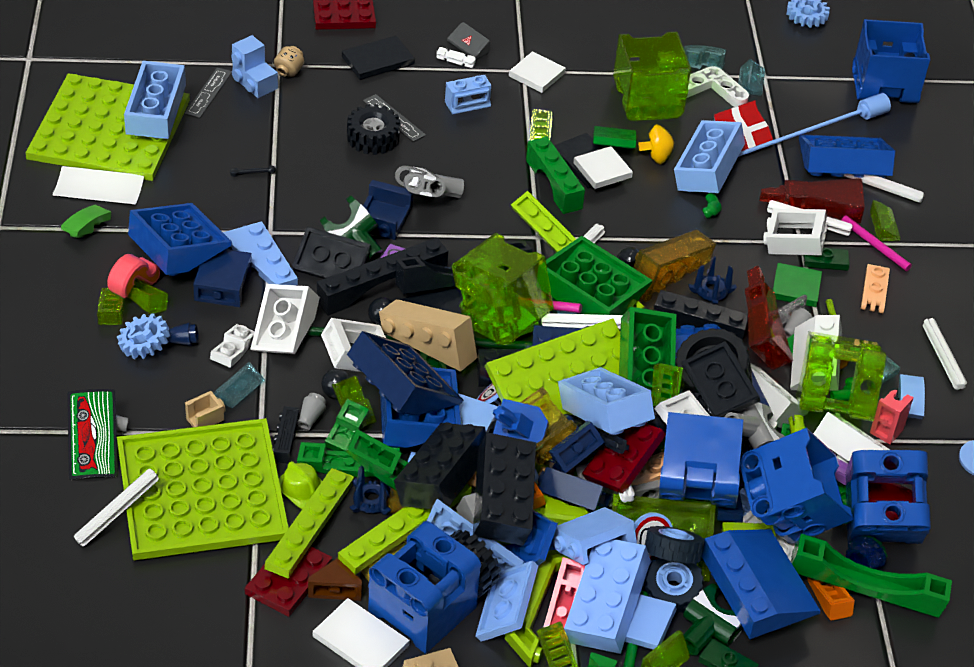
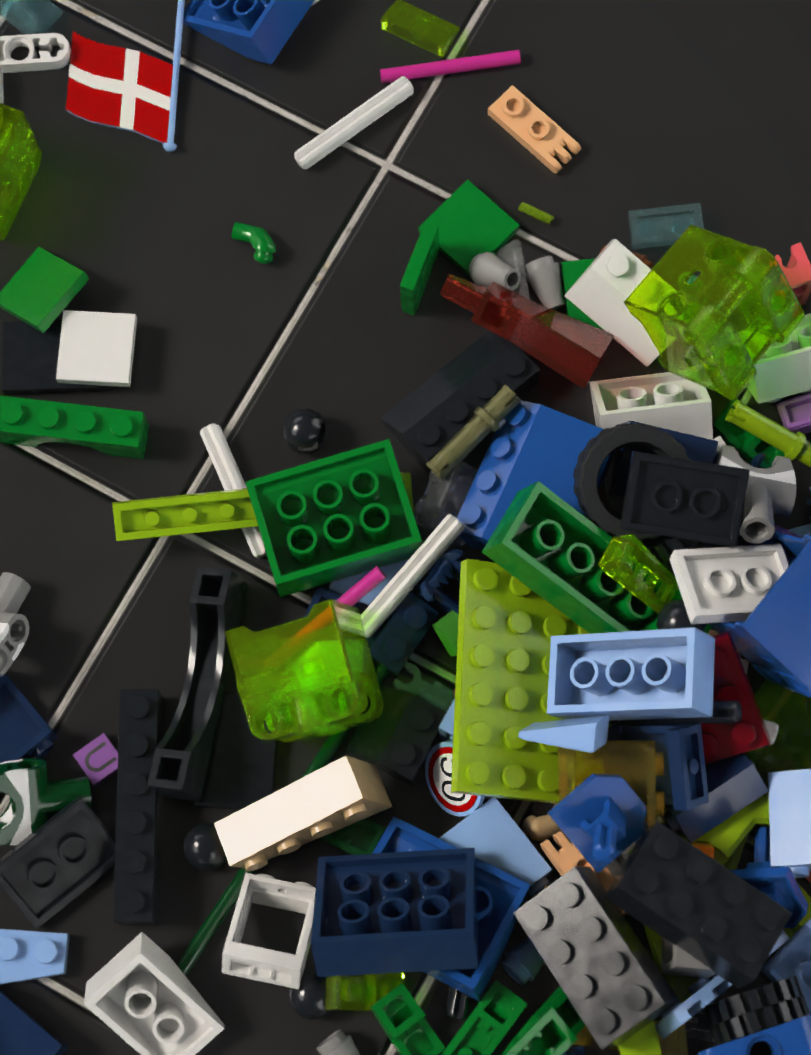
camera: 50 degrees left, 30 degrees up
(557, 390) = (579, 734): none -> light blue slope
(660, 144) = (94, 236): yellow piece -> none
(672, 259) = (343, 373): clear yellow wedge -> none
(693, 314) = (484, 421): none -> olive pin
(709, 156) = (171, 184): light blue brick -> none
(721, 285) = (412, 364): dark blue piece -> none
(748, 257) = (419, 268): none -> green tile
(782, 290) = (490, 268): none -> light grey cone
(796, 243) = (406, 185): white window -> none
(830, 259) = (441, 154): dark green plate -> none
(835, 196) = (341, 66): clear red piece -> none
(914, 387) = (749, 219): light blue slope -> none
(944, 354) = (698, 124): white axle -> none

